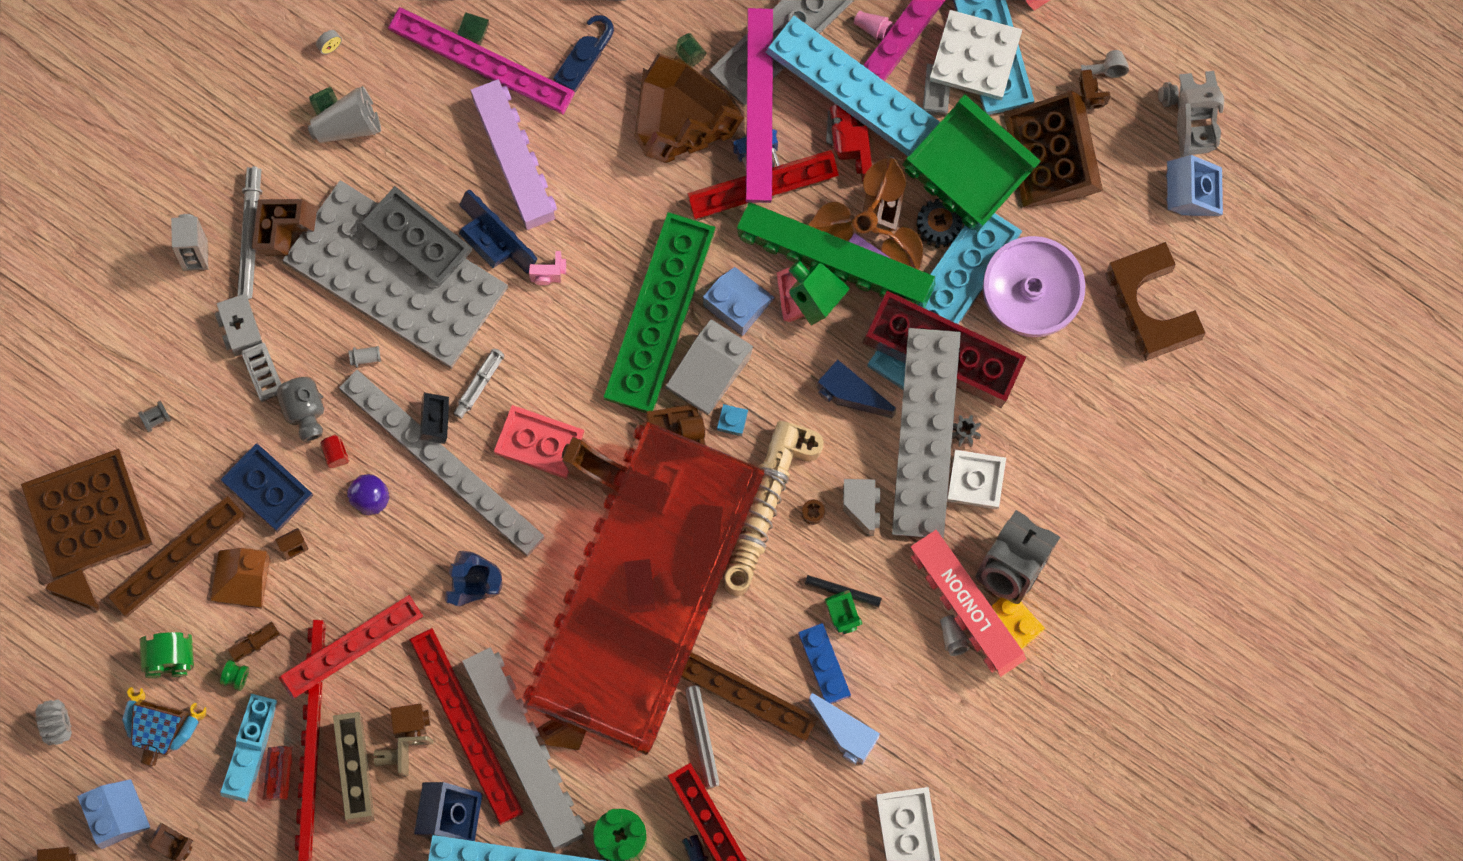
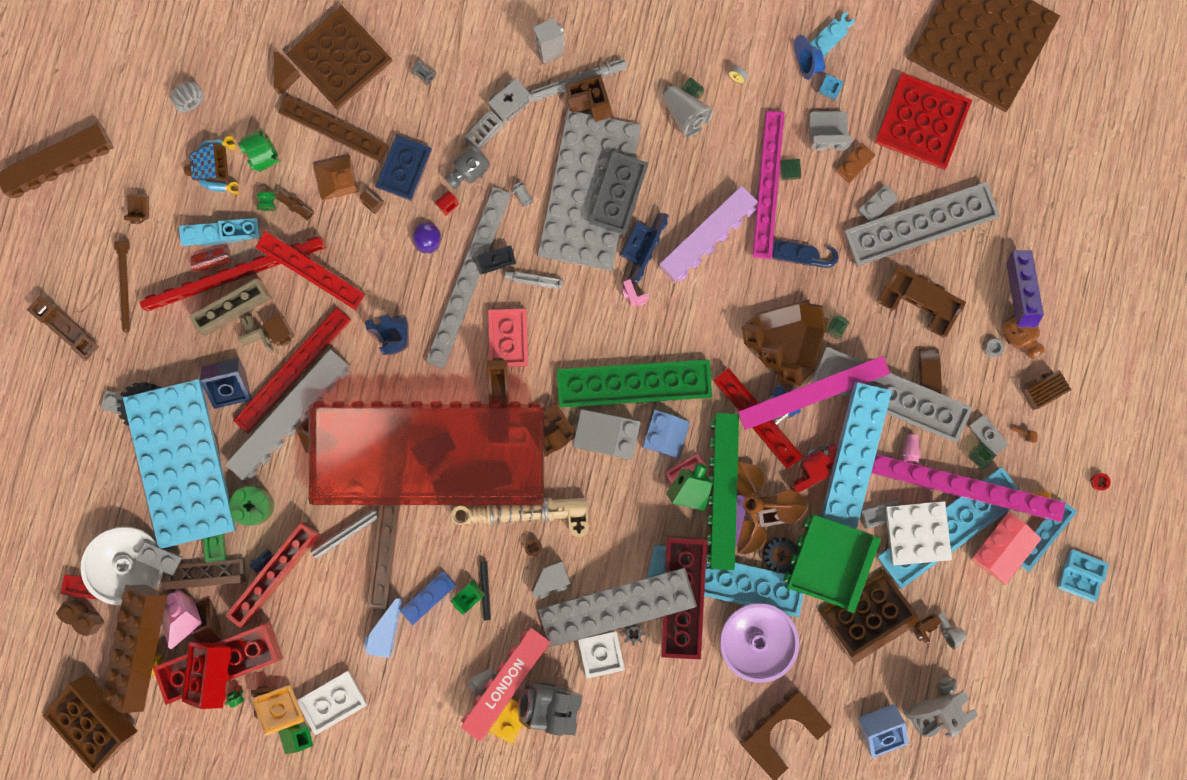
camera: 70 degrees right, 10 degrees up
(113, 812) = (143, 162): medium blue slope -> none
(732, 420) = (577, 465): dark azure plate -> none
(850, 391) = (630, 537): dark blue slope -> none

